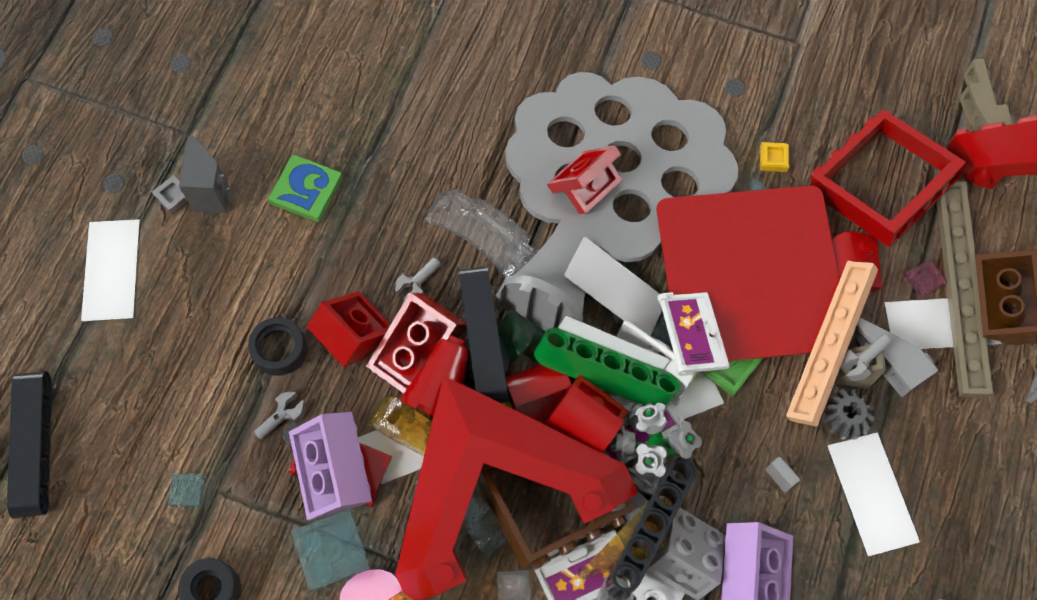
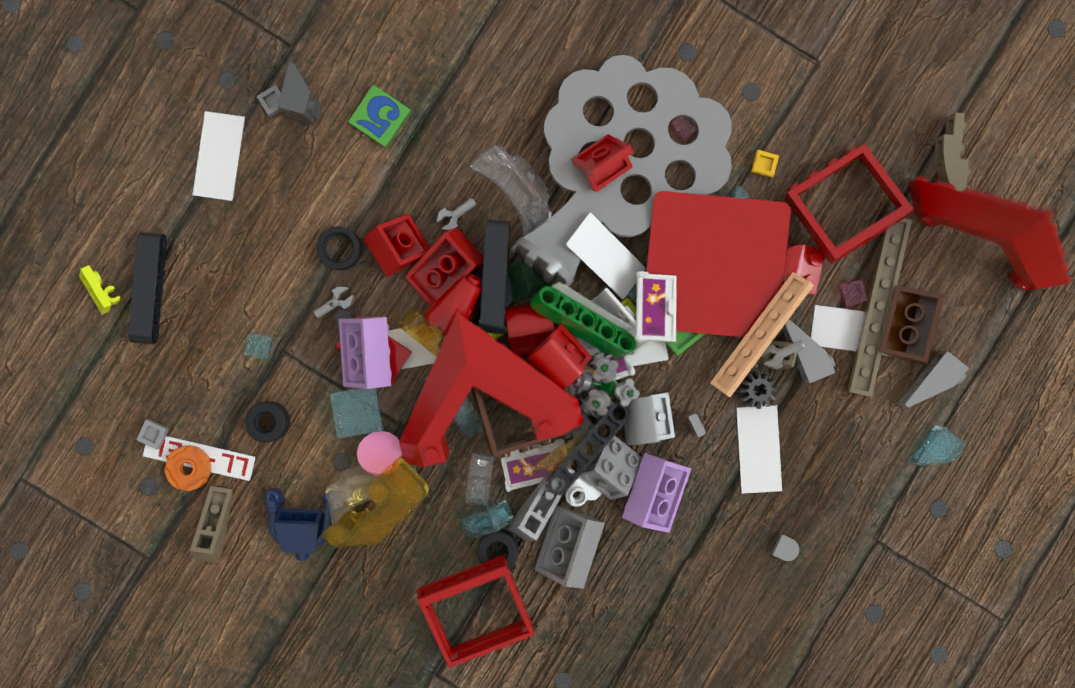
camera: 20 degrees right, 20 degrees up
(669, 135) = (684, 127): none -> clear pink tile
(721, 480) = (649, 419): none -> light grey brick

